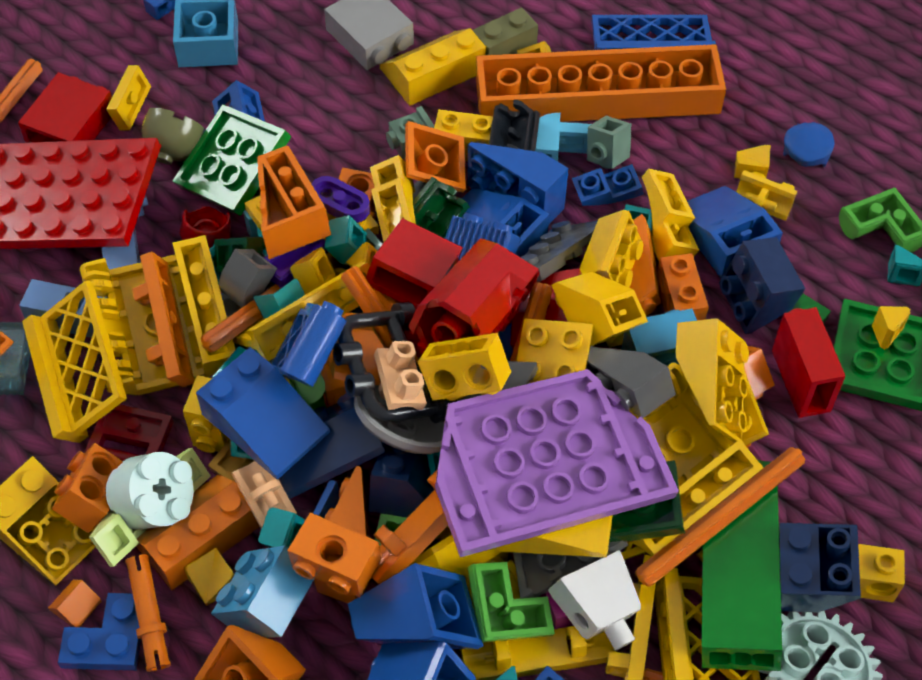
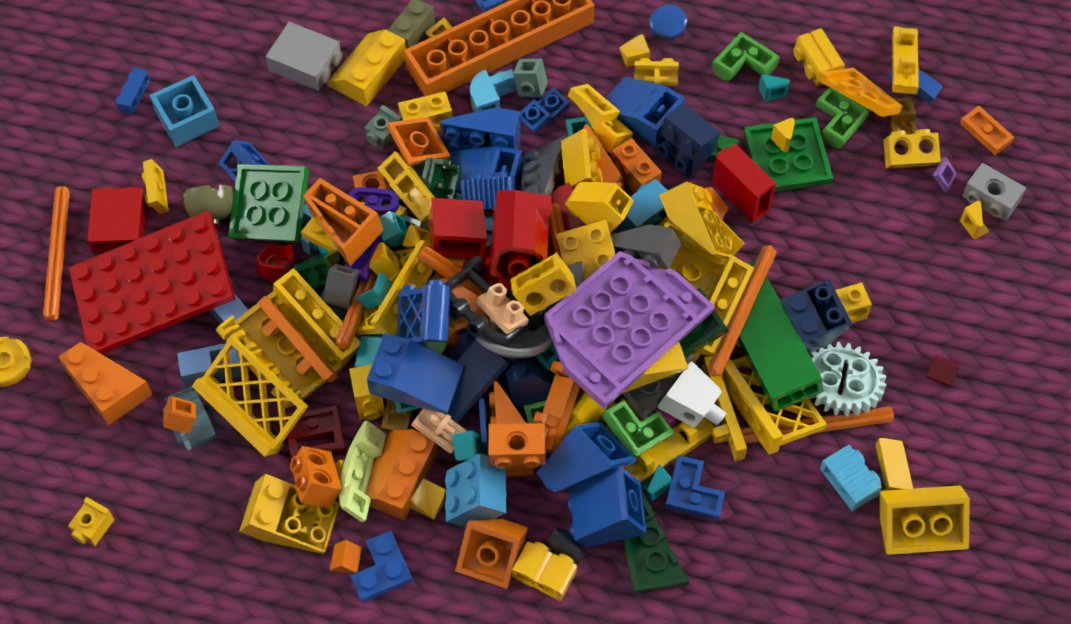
camera: 25 degrees left, 5 degrees up
(148, 613) = (402, 540): orange pin -> none
(151, 490) = (362, 459): light aqua brick -> none
(515, 128) = (462, 96): black hinge -> none

